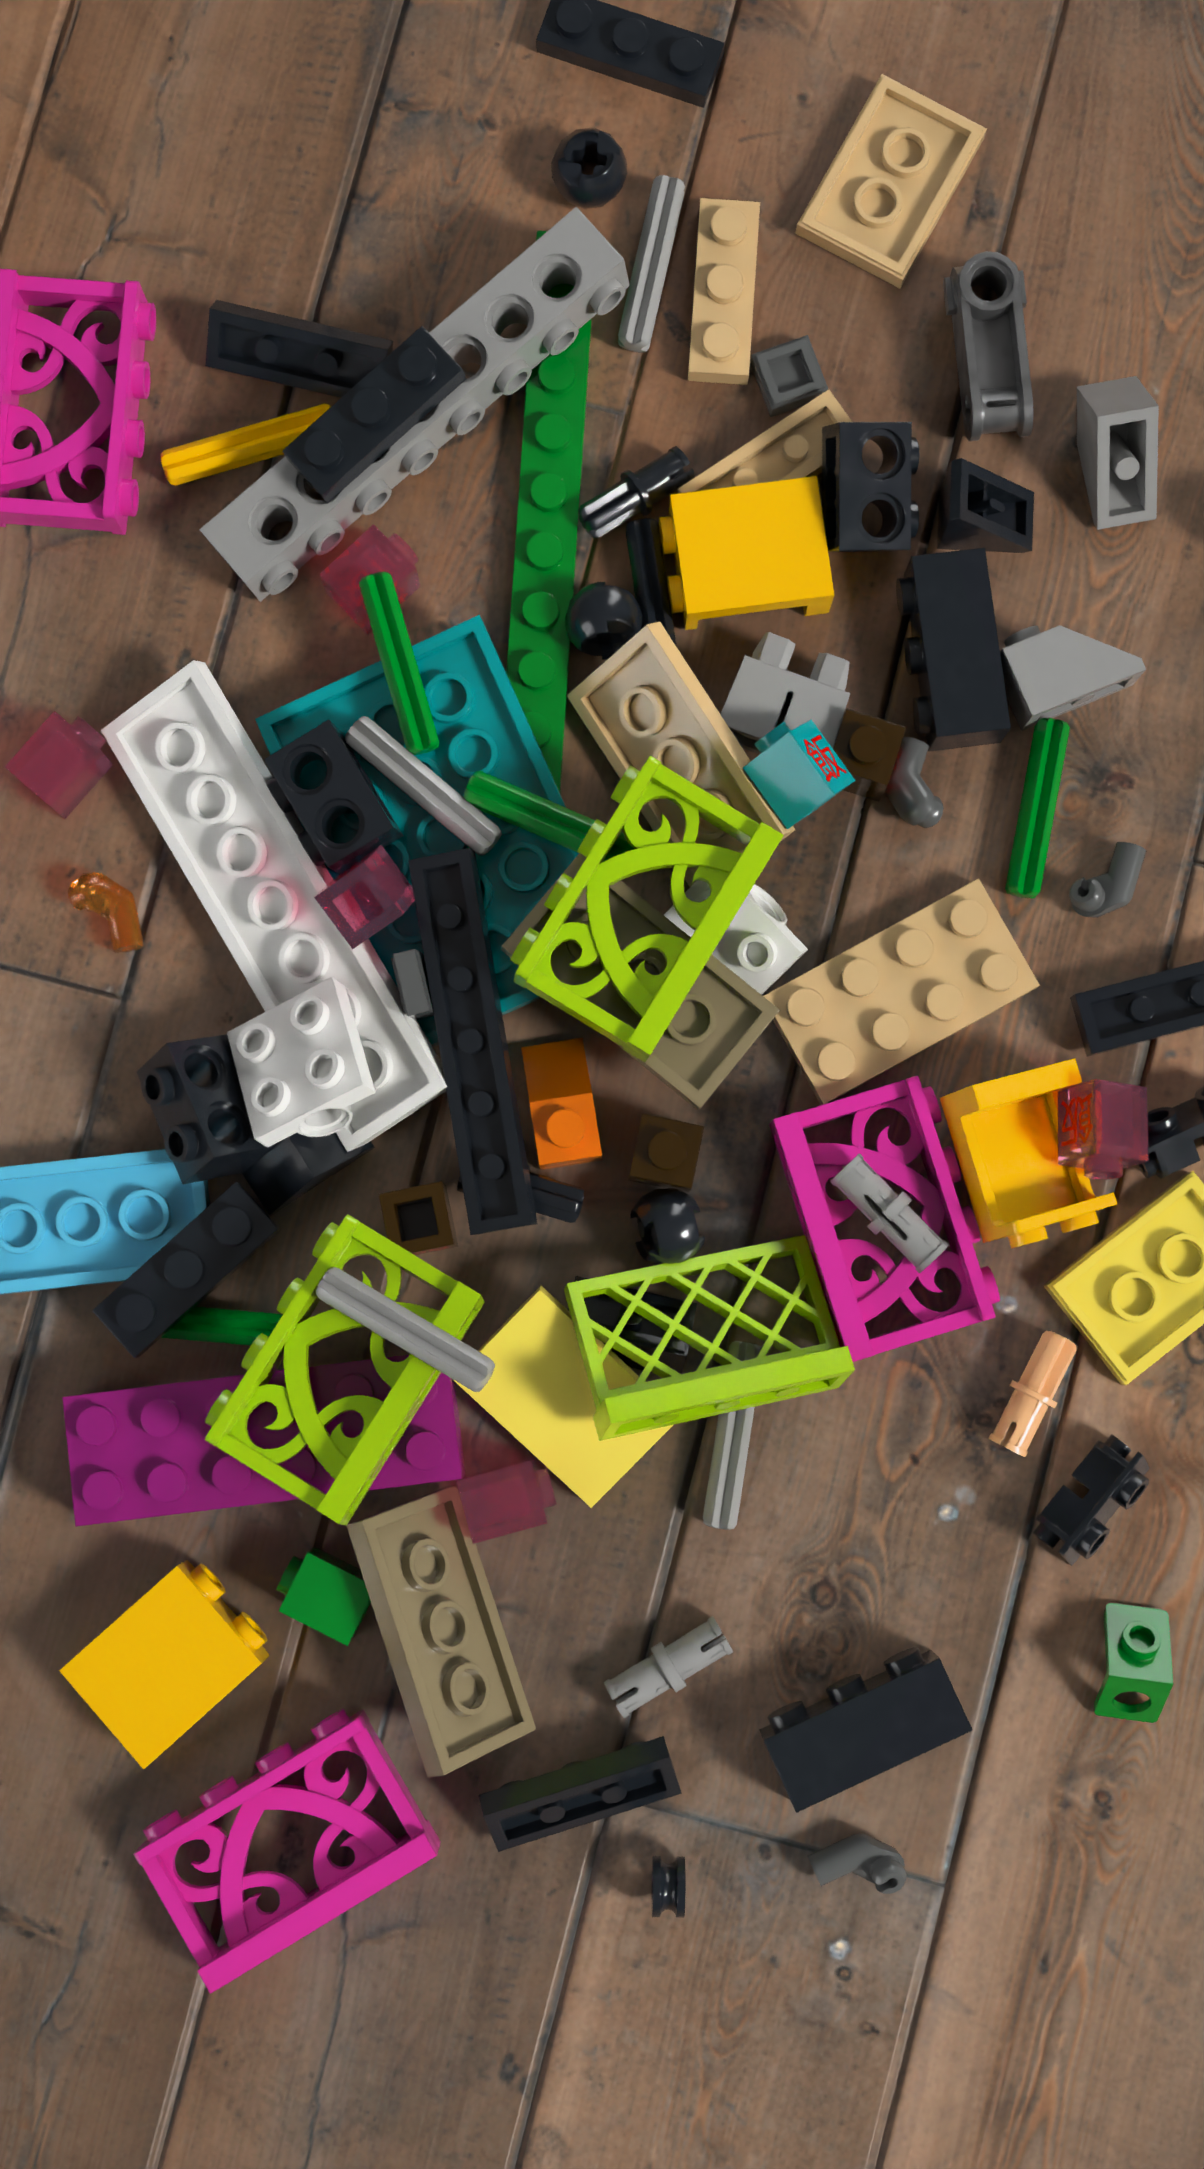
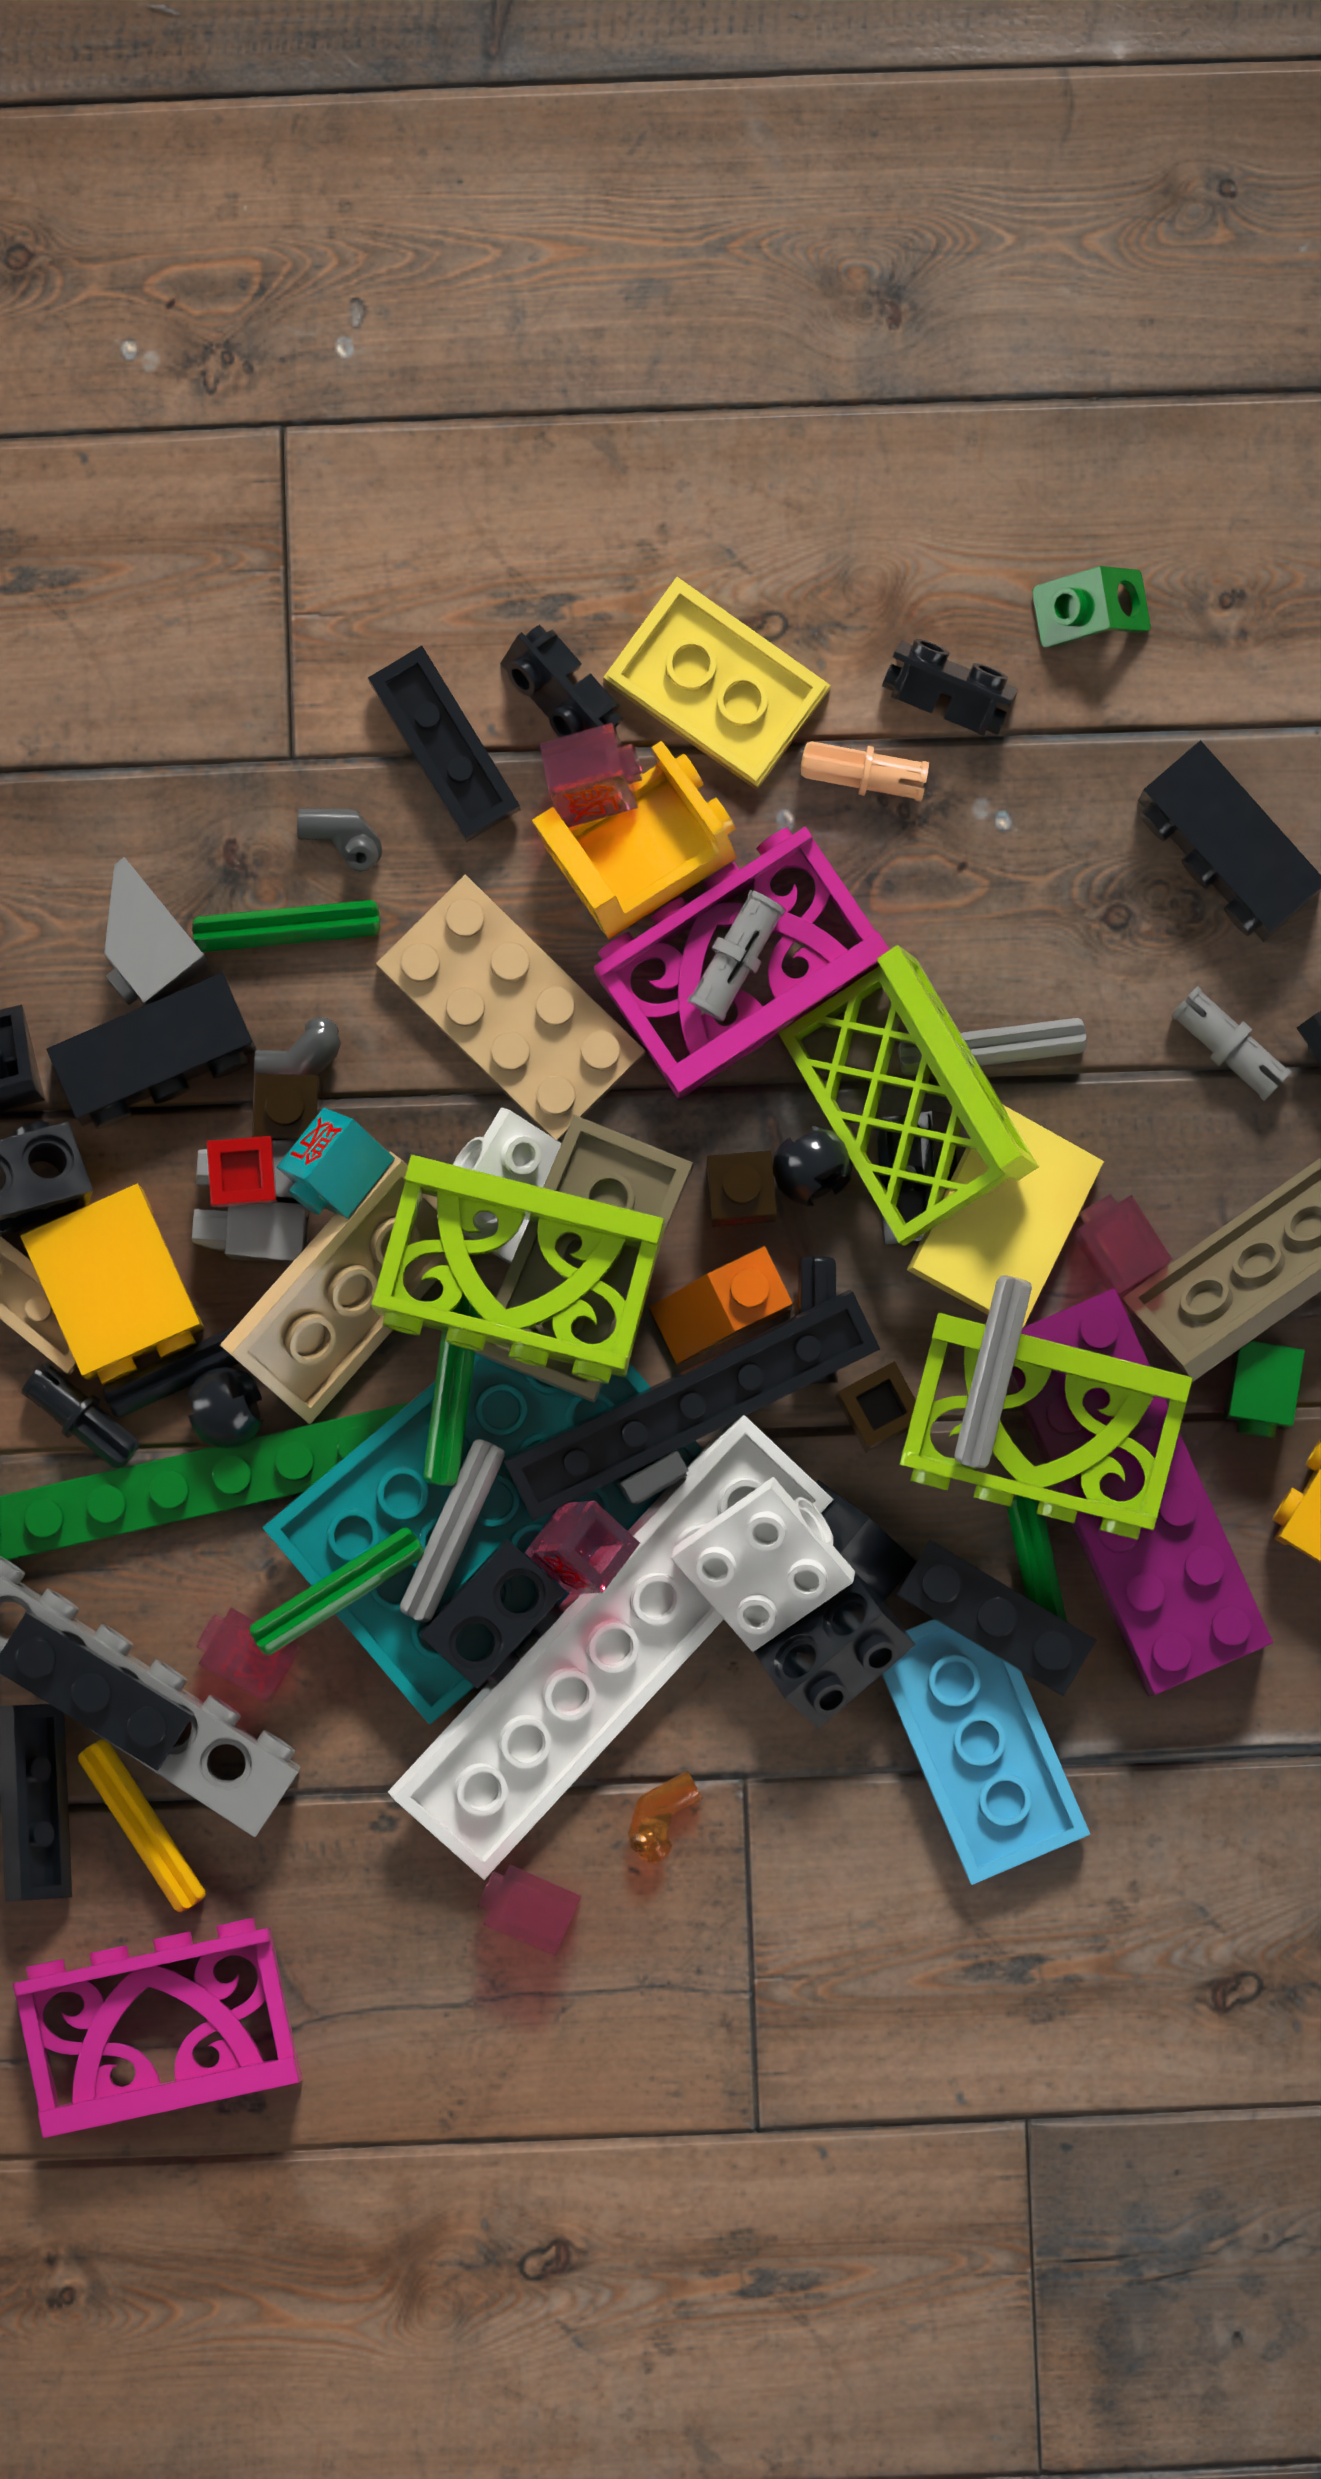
camera: 105 degrees left, 0 degrees up
(816, 686) = (241, 1171): none -> red plate

